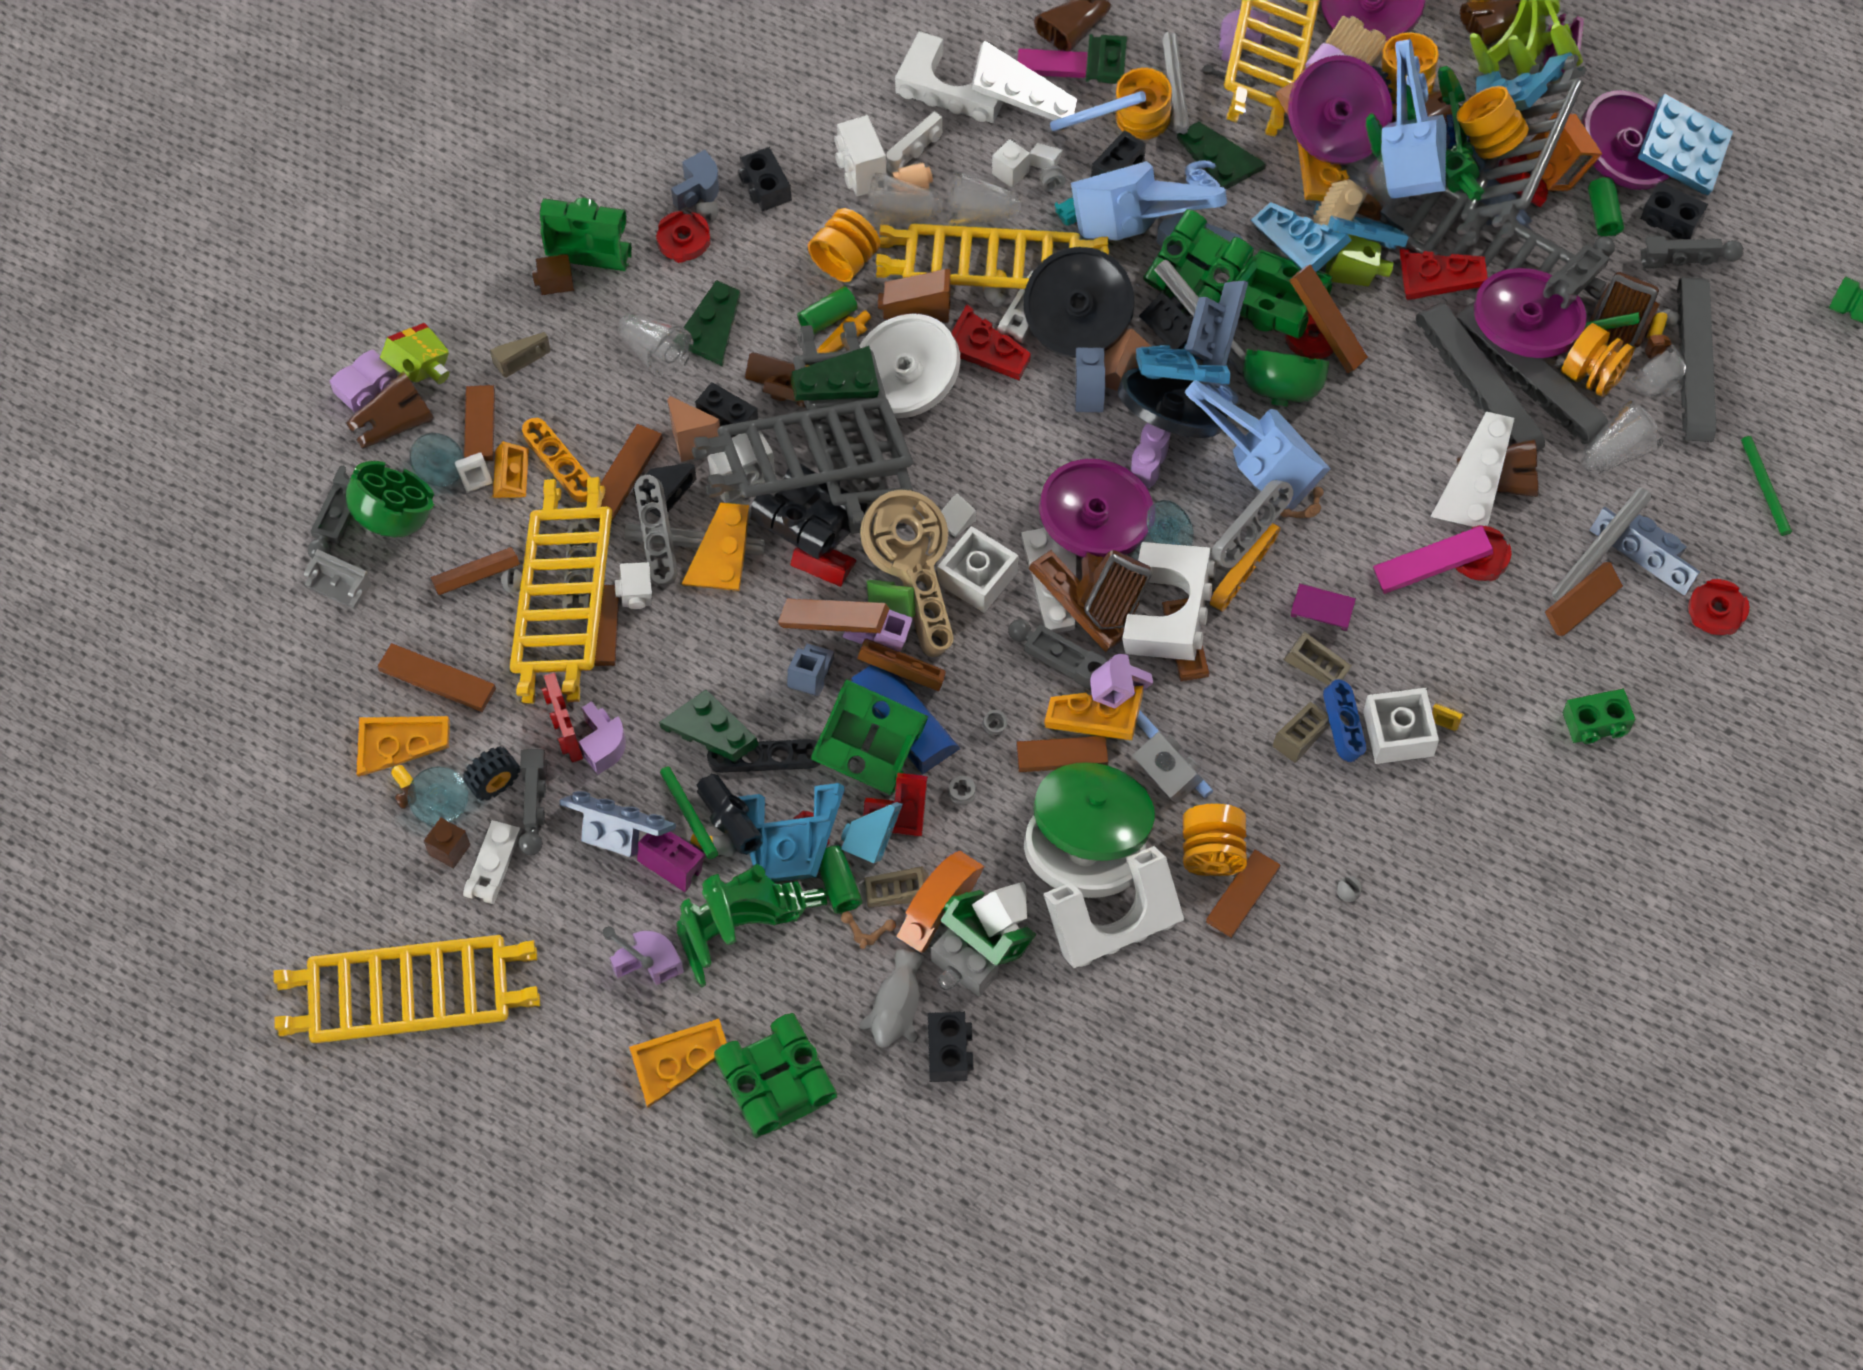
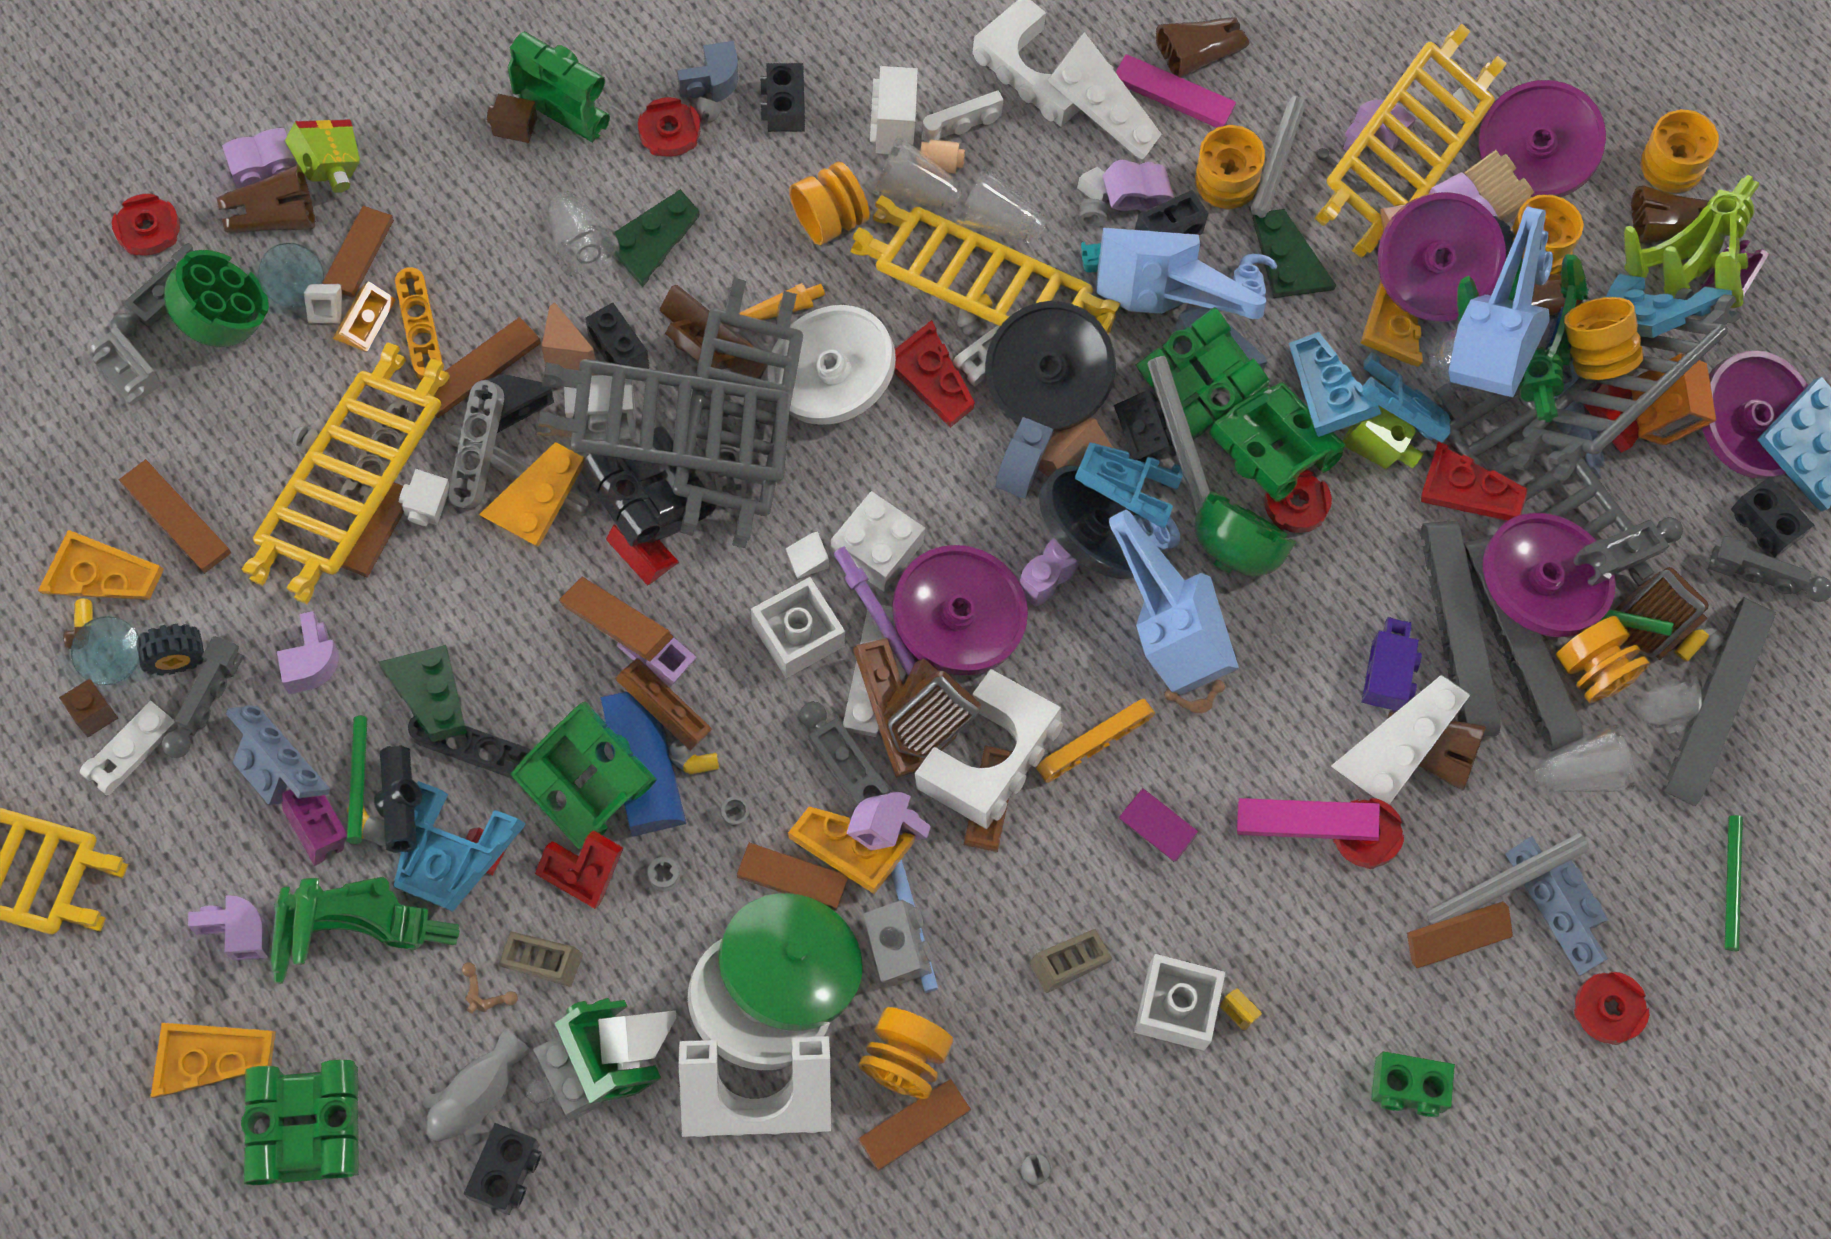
camera: 15 degrees right, 5 degrees up
(295, 480) = (151, 240): none -> red plate
(475, 571) = (270, 413): dark orange tile -> none
(519, 353) = (435, 191): dark tan slope -> none
(560, 718) = (276, 616): red wing -> none
(609, 934) = (201, 885): dark grey hinge -> none
(809, 669) = (561, 669): sand blue brick -> none
(828, 310) = (779, 269): green pin -> none
(839, 377) = (745, 351): dark green wing -> none
(839, 880) = (479, 923): green pin -> none
(871, 833) = (536, 885): medium azure slope -> none
(896, 597) = (686, 624): bright green slope -> none
(910, 557) = (728, 587): tan beam -> none
(918, 294) = (884, 292): dark orange slope -> none
(940, 702) = (689, 761): none -> arm
(952, 877) = (588, 980): orange arch -> none
(1006, 483) = (879, 539): none -> white brick
(1008, 516) = (858, 580): none -> medium lavender bar
(1010, 163) = (1055, 179): white brick -> none
(1077, 144) = (1136, 185): none -> lavender brick
(1097, 111) = (1174, 157): light blue bar -> none
(1106, 58) = (1213, 100): dark green plate -> none
(1169, 524) = (1042, 660): clear light blue dish -> none
(1216, 325) = (1185, 452): sand blue bracket -> none
(1250, 520) = (1119, 692): light grey beam -> none
(1312, 668) = (1116, 892): dark tan slope -> none
(1328, 318) = (1317, 492): dark orange tile -> none
(1341, 201) = (1391, 365): tan brick -> none
(1348, 739) = (1133, 956): blue beam -> none
(1370, 208) = (1426, 377): dark orange tile -> none
(1442, 427) = (1392, 667): none -> dark purple brick
(1605, 207) = (1695, 481): green pin -> none
(1656, 345) = (1681, 667): dark orange tile -> none

